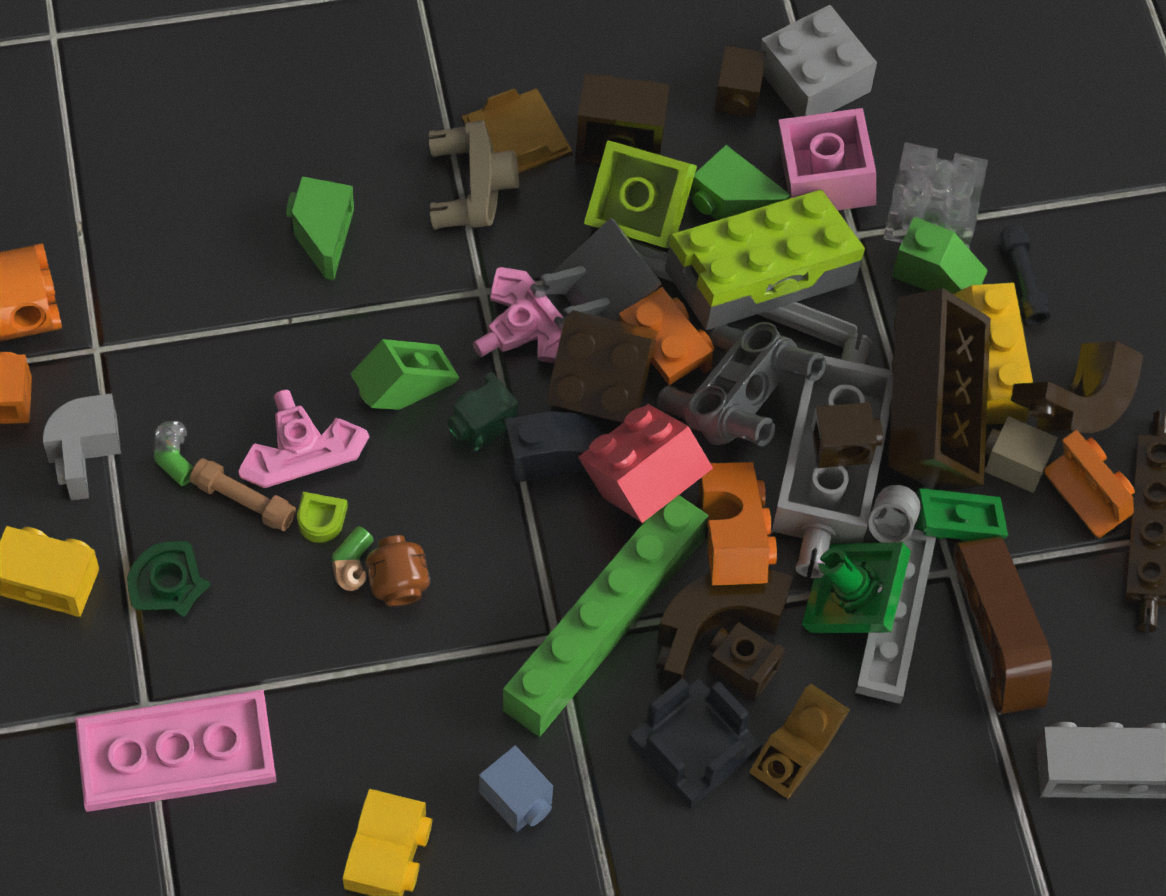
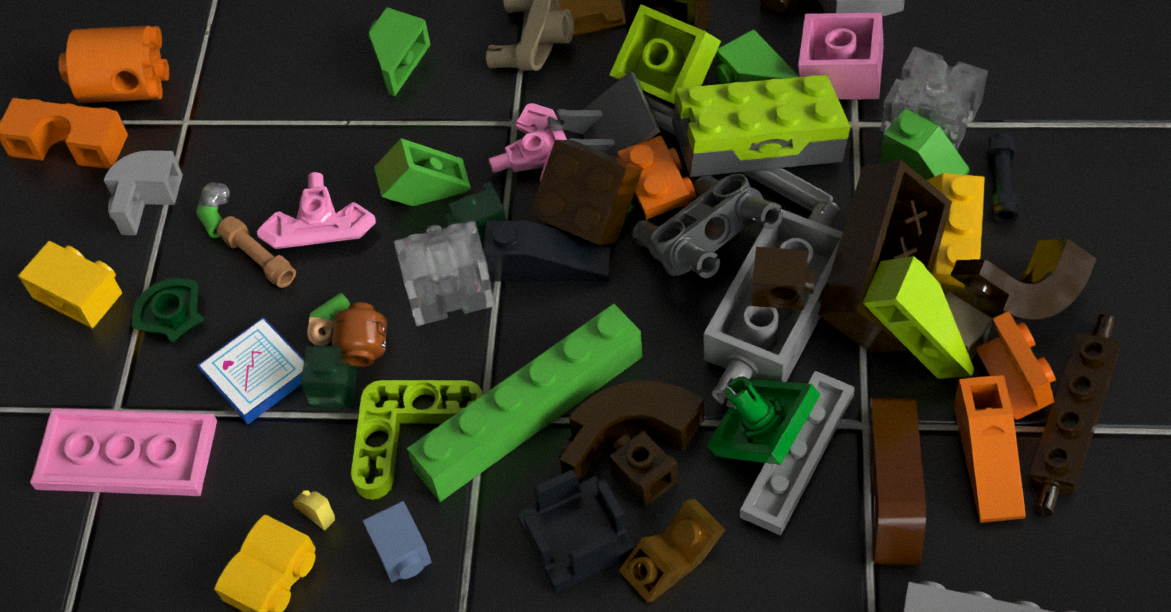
camera: 25 degrees right, 5 degrees down
(290, 631) = (254, 370): none -> white tile
(321, 517) = (315, 281): lime tile -> none
(381, 626) = (328, 378): none -> clear green brick
(416, 771) = (315, 508): none -> light yellow tile
(458, 657) = (389, 419): none -> lime beam
(475, 484) = (444, 272): none -> clear brick
(645, 462) = (597, 275): coral piece -> none
(736, 524) = (668, 341): orange arch -> none
(890, 524) = (808, 367): light grey wheel -> none
(960, 515) = (881, 373): green plate -> none
(988, 448) = (918, 314): none -> lime slope
(1084, 572) = (990, 447): none -> orange slope

